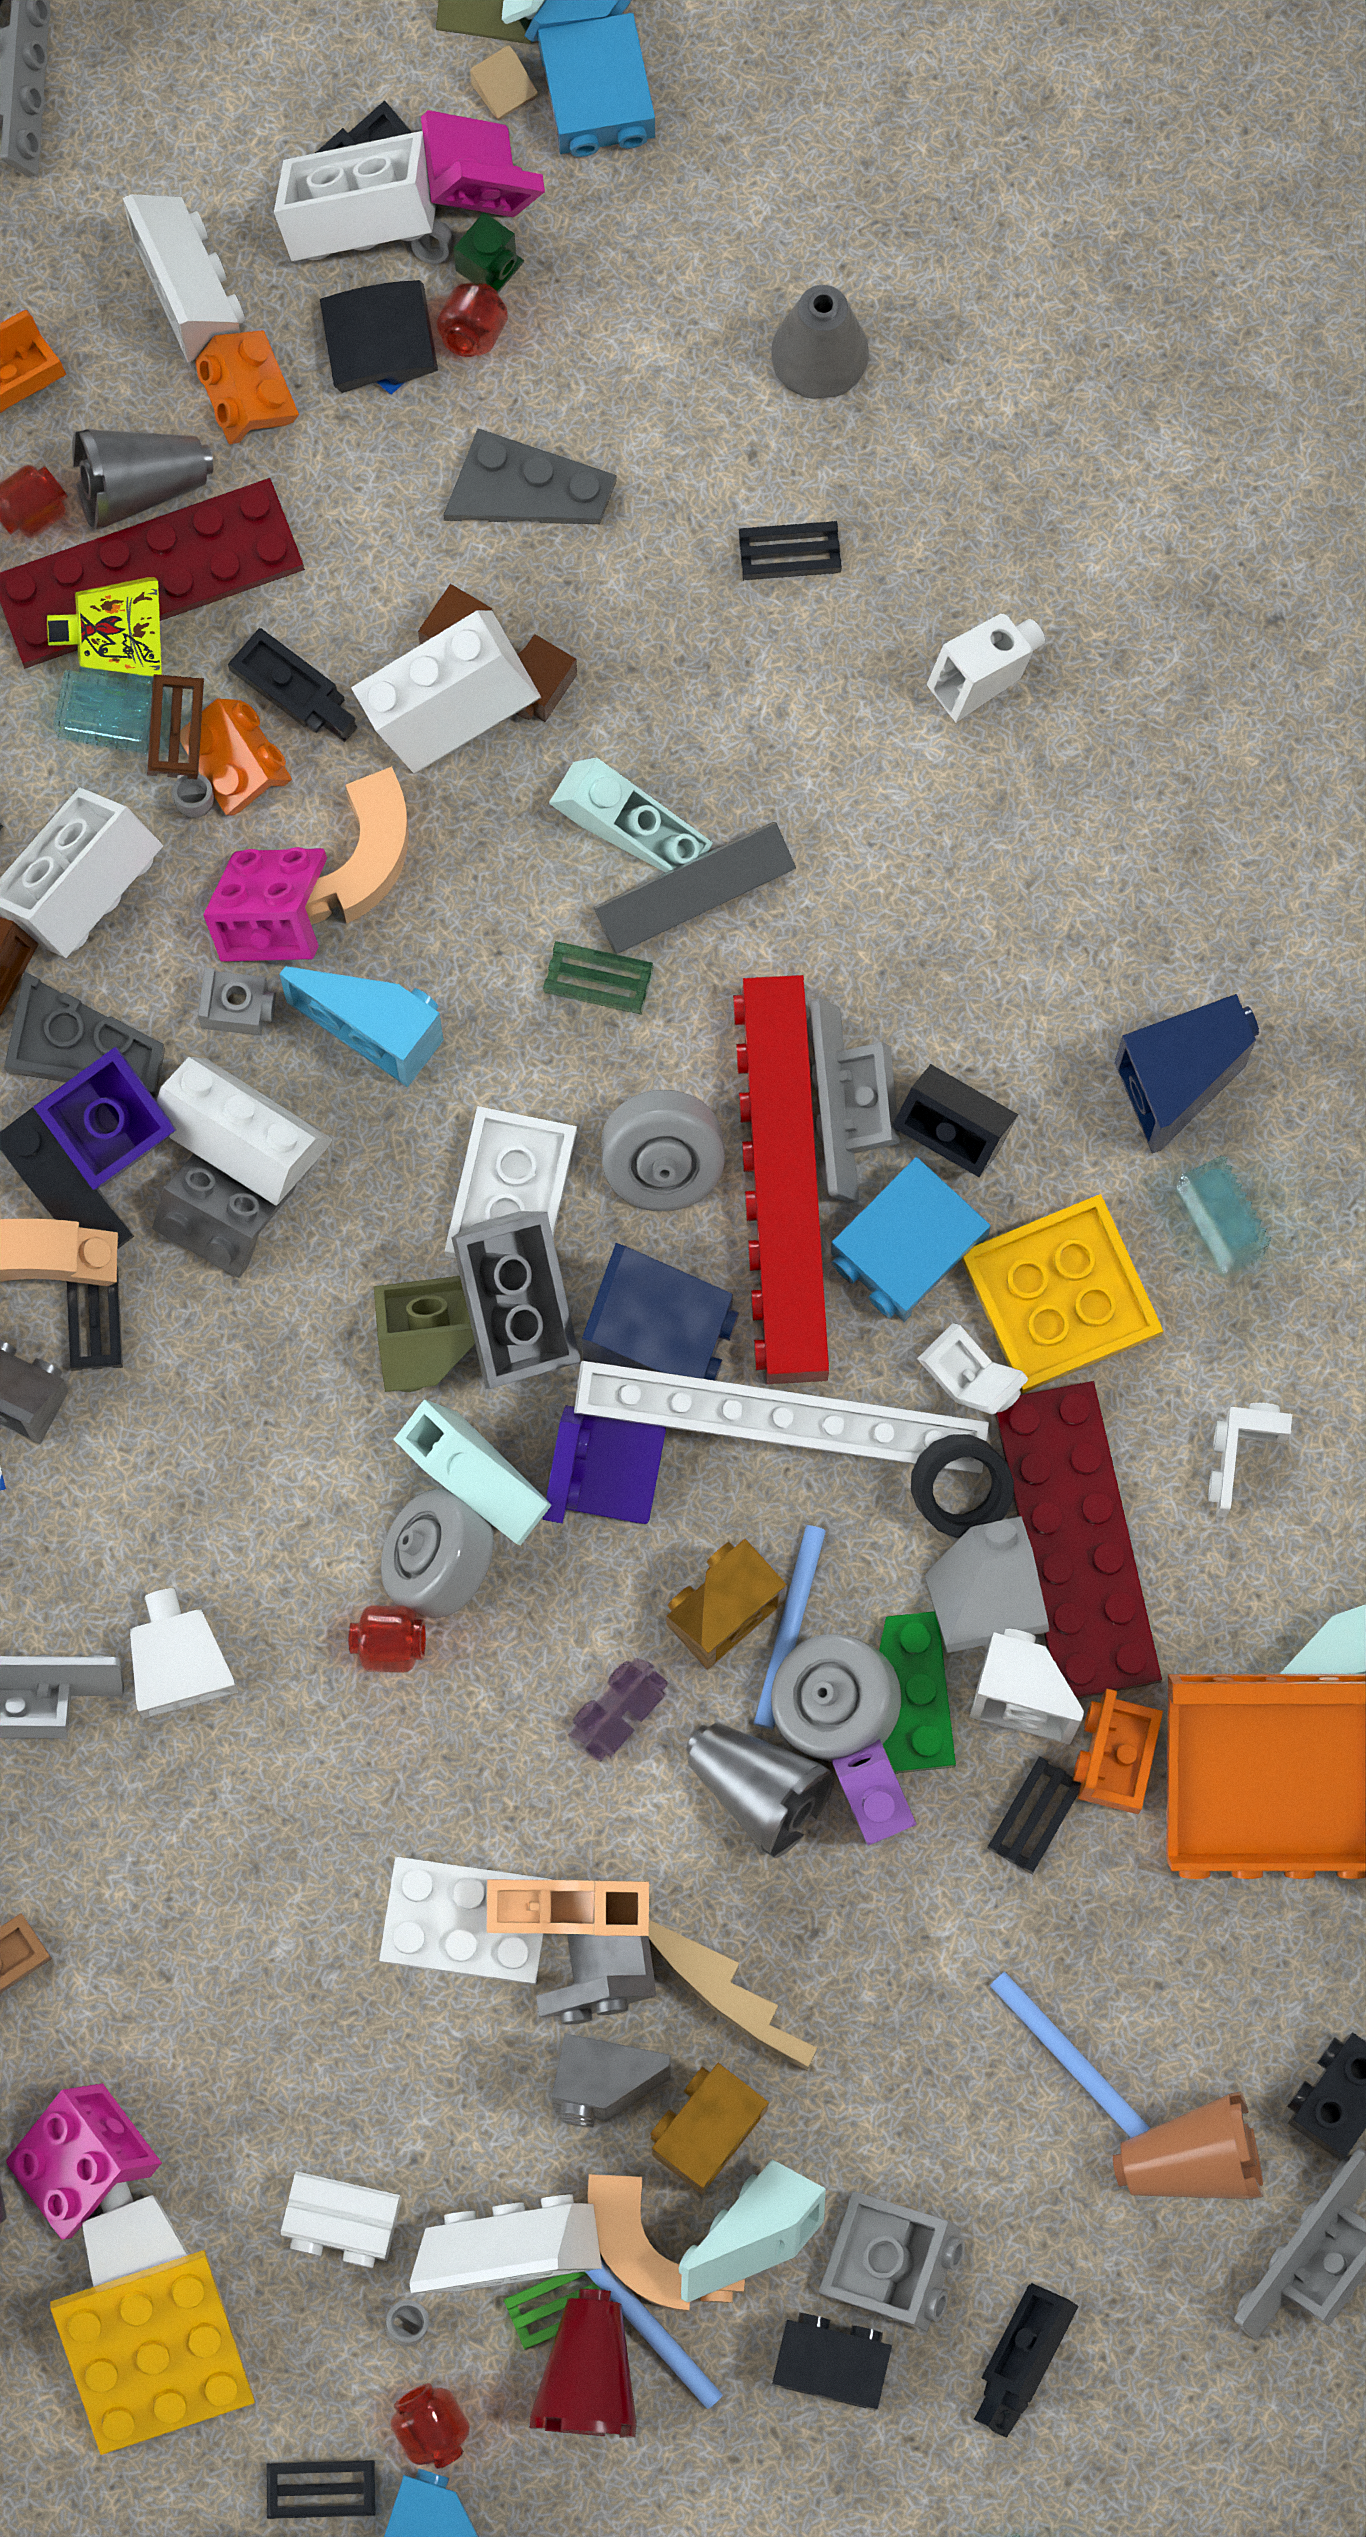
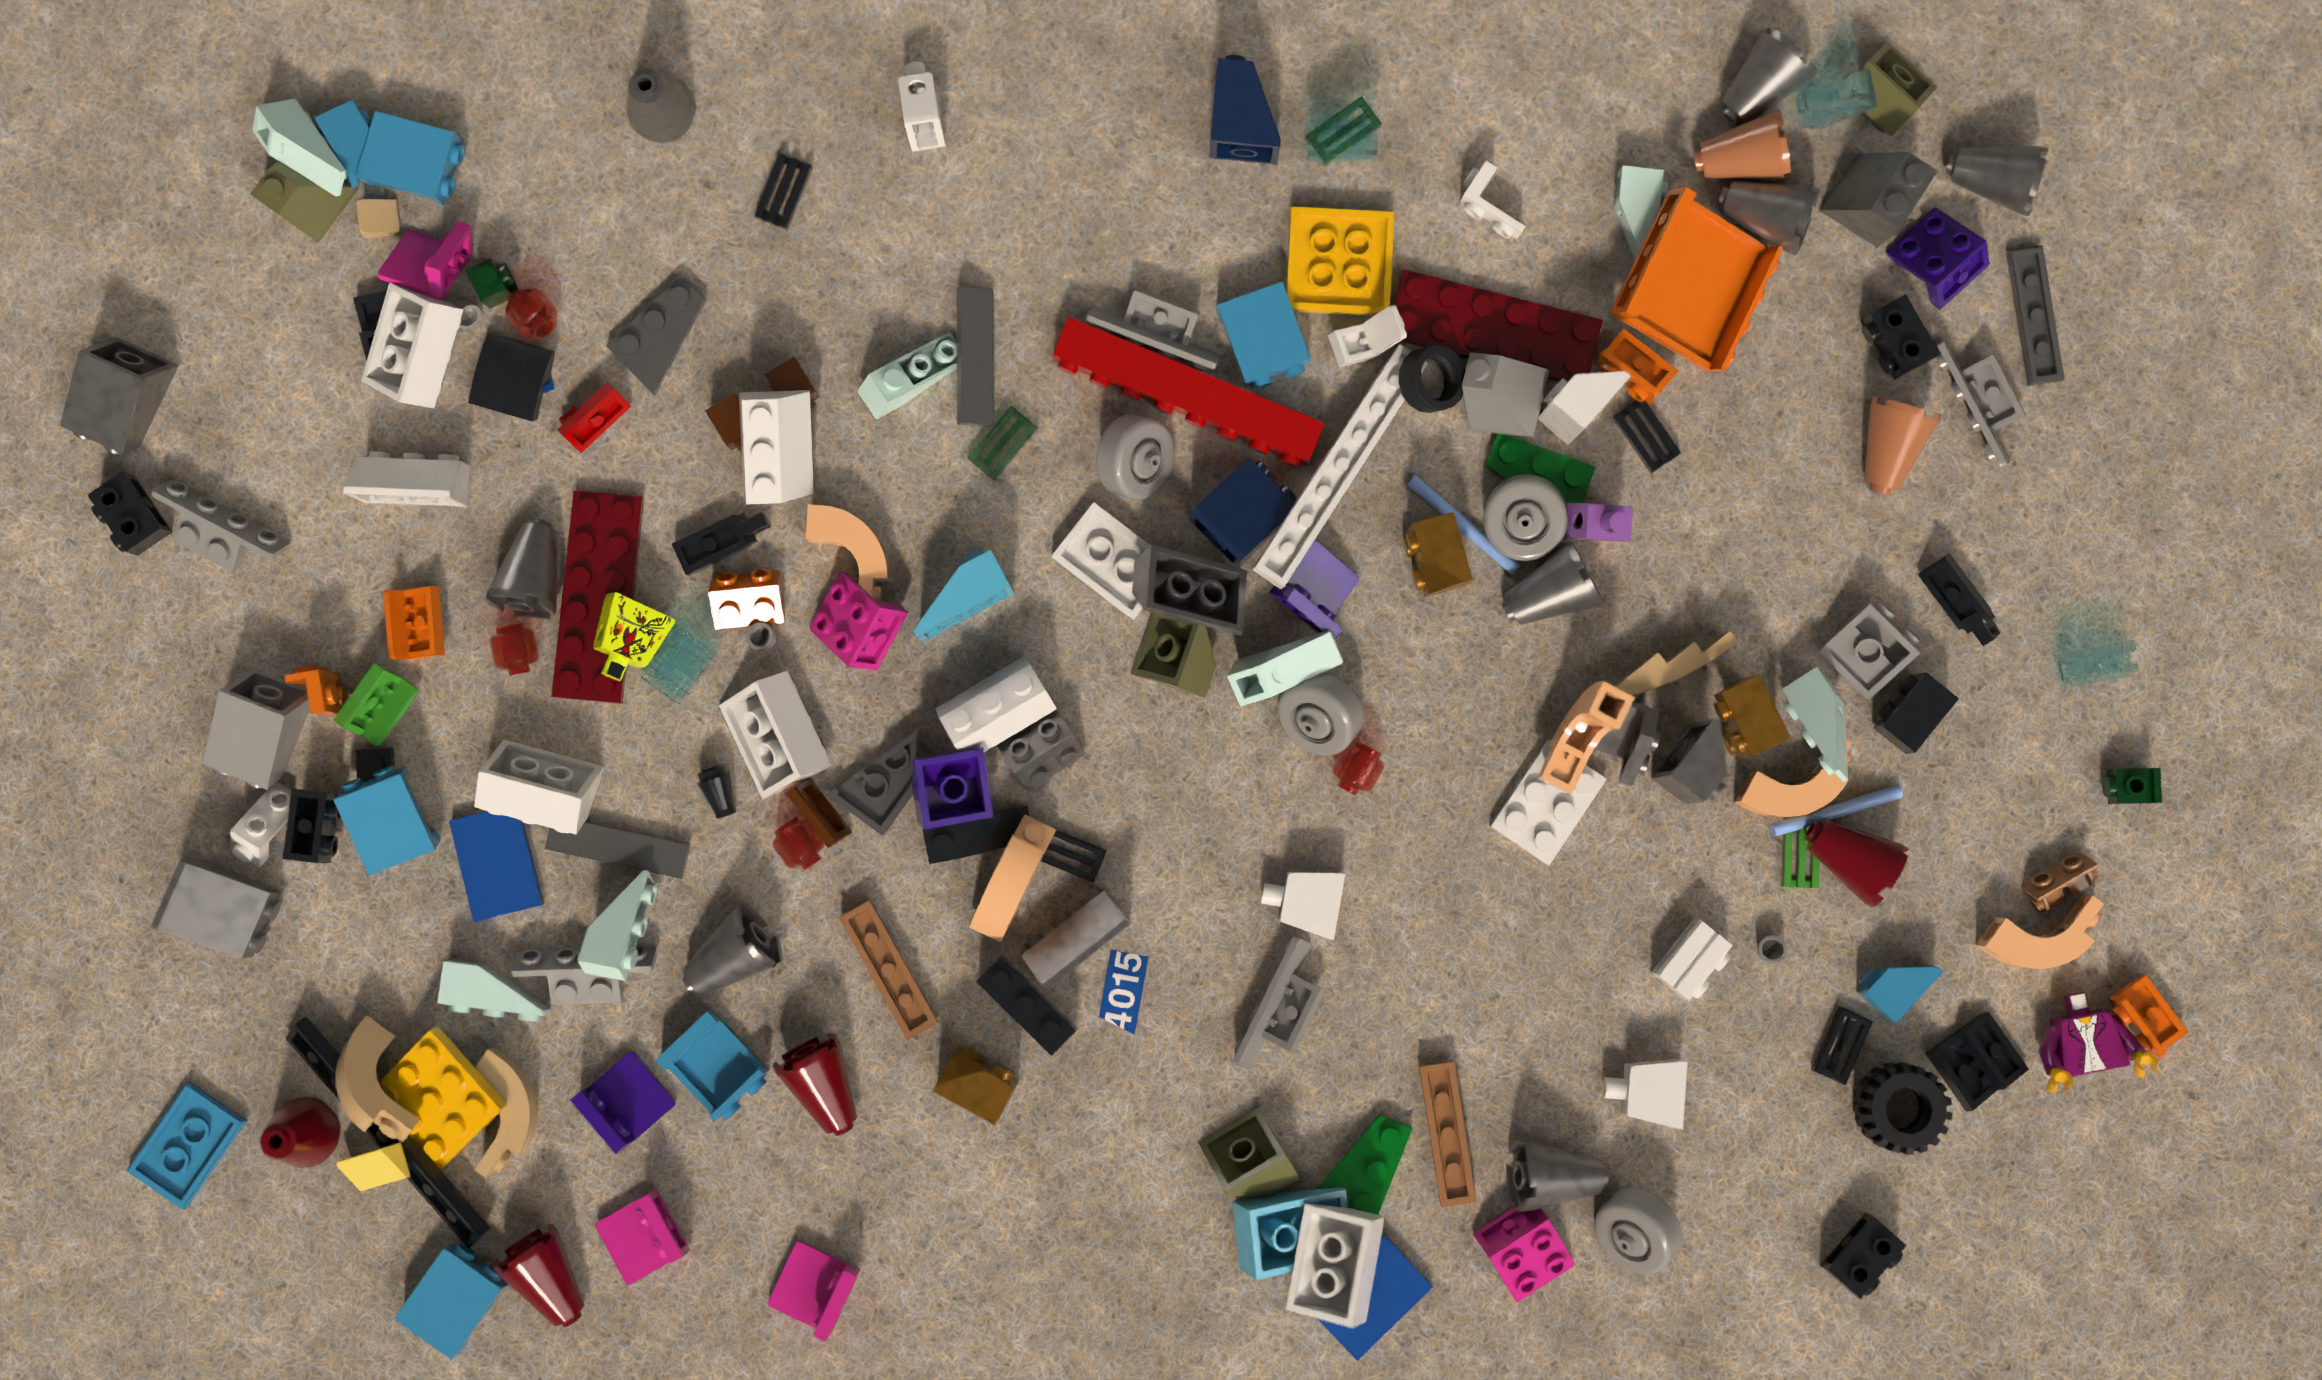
camera: 65 degrees left, 10 degrees up
(79, 2155) = (1584, 1098): dark pink bracket -> none
(152, 2352) = (1721, 1108): yellow plate -> none
(173, 767) = (741, 641): reddish brown tile -> none
(245, 384) = (502, 477): orange bracket -> none
(246, 1018) = (911, 686): light grey brick -> none
(378, 458) = (595, 416): none -> red hinge
(430, 2426) = (1838, 964): clear red head -> none
(507, 2247) = (1765, 871): white slope -> none
(628, 1691) = (1468, 665): clear purple hinge -> none
(954, 1120) = (1204, 270): black brick -> none
(1068, 2055) = (1797, 486): light blue bar -> none
(1218, 1220) = (1319, 148): none -> clear green tile

